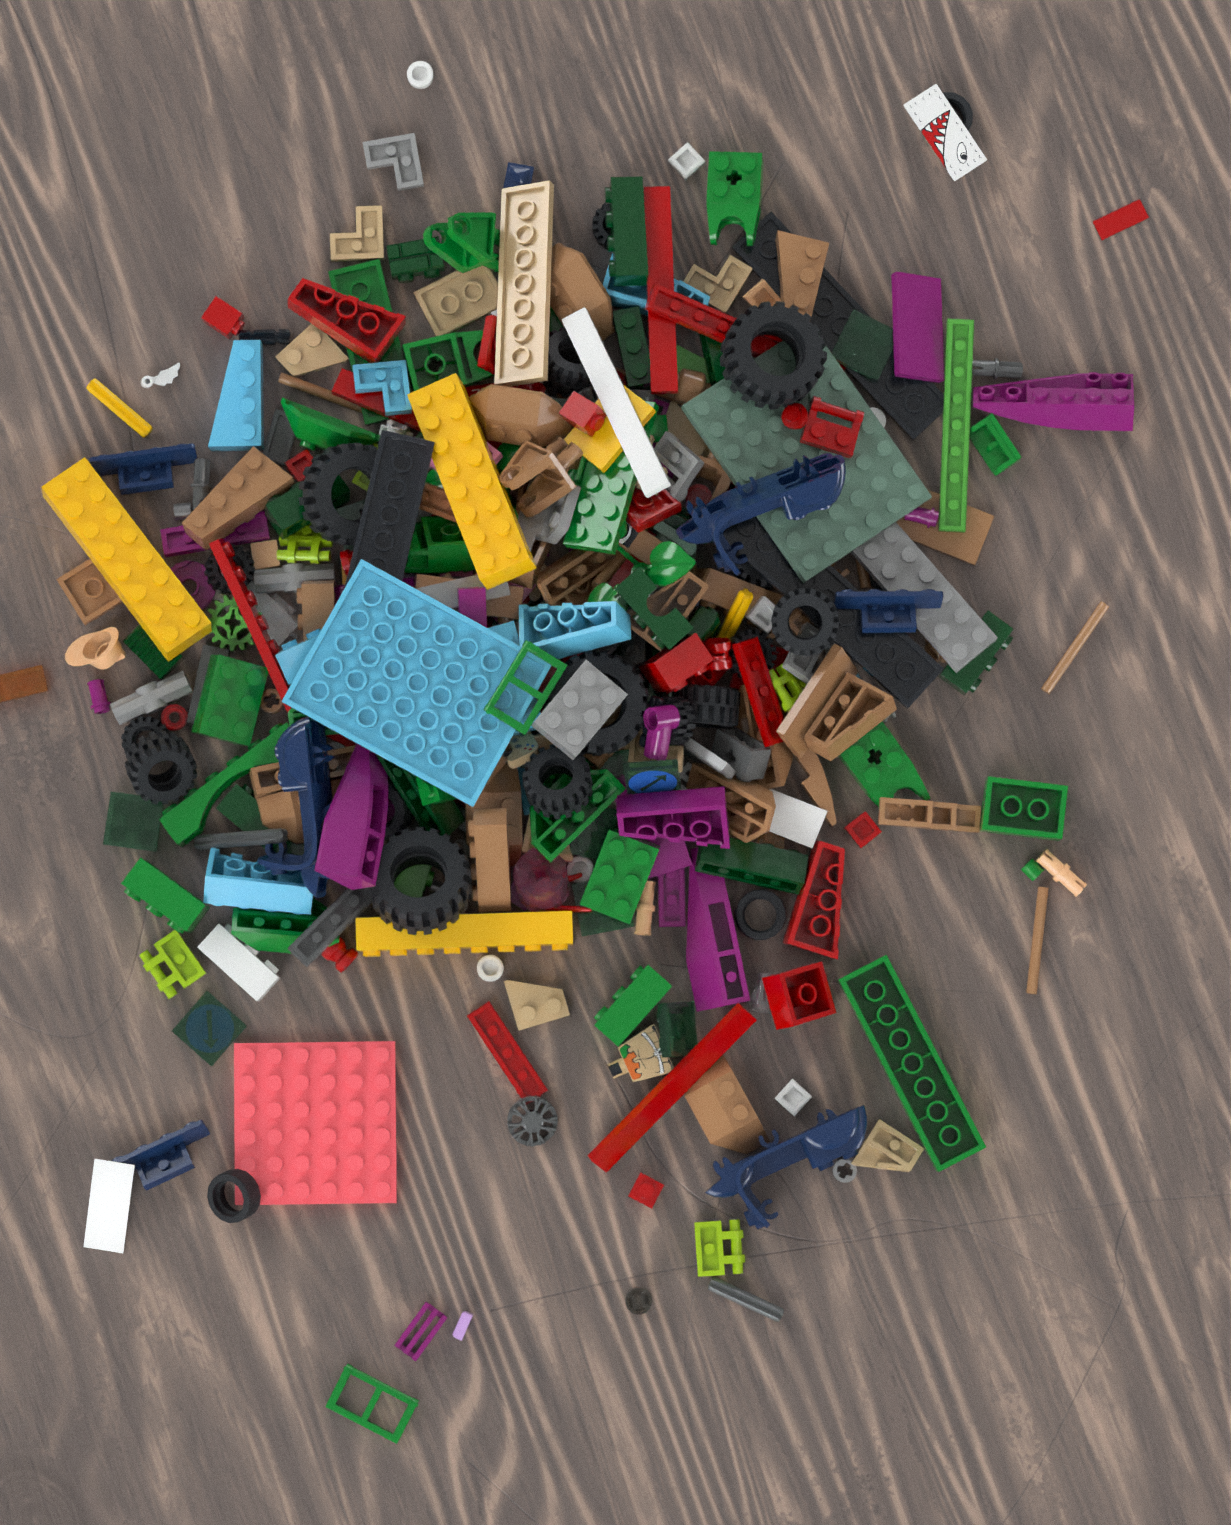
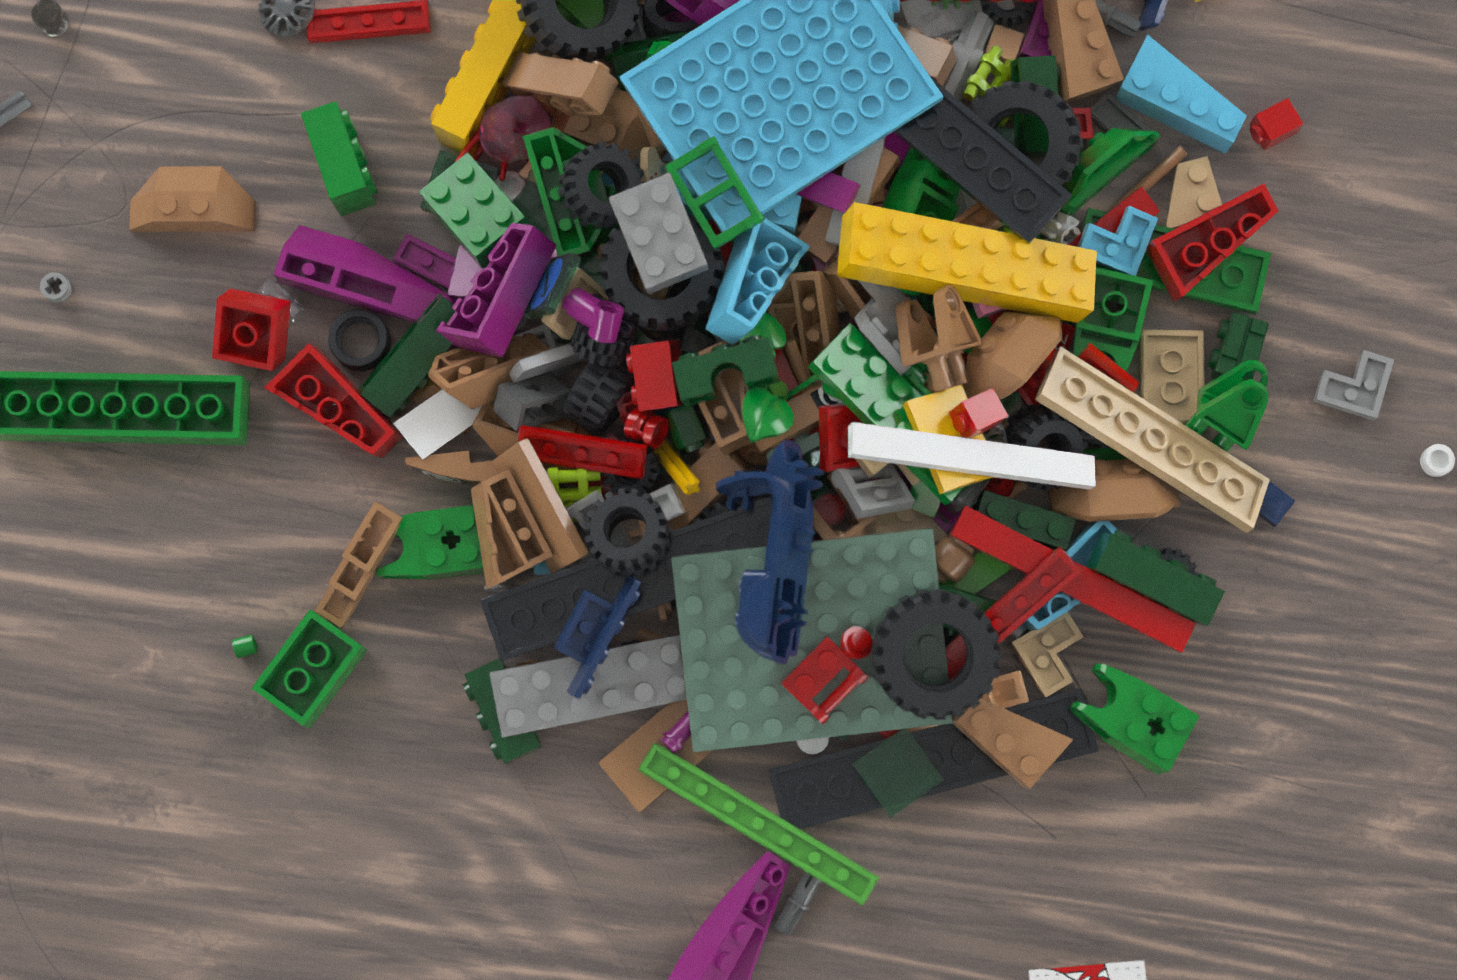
camera: 120 degrees right, 5 degrees down
(164, 377) = (1242, 37): white piece -> none
(267, 336) = (1233, 158): black axle -> none
(366, 242) = (1283, 309): tan plate -> none
(490, 968) = (458, 44): white tile -> none
(535, 1003) = (401, 72): tan wing -> none
(641, 1057) = (283, 148): tan torso -> none
(644, 910) = (431, 228): light nougat pin -> none
(646, 1190) = (154, 83): red plate -> none
(672, 1087) = (235, 157): red tile -> none
(676, 1028) = (289, 191): clear green plate -> none
(686, 161) = (1200, 692): white tile -> none
(709, 1247) = (56, 112): lime plate -> none
(793, 1097) = (159, 276): white tile -> none
(820, 1145) = (93, 273): dark blue piece -> none
(862, 829) = (387, 490): red plate -> none
(887, 1150) = (48, 339): tan wing -> none
(917, 327) = (887, 840): magenta tile -> none
(994, 445) = (715, 854): green hinge -> none
(1037, 940) = (170, 611): medium nougat bar -> none
(1061, 872) = (223, 674): light nougat pin -> none
(1075, 647) = (451, 822): medium nougat bar -> none

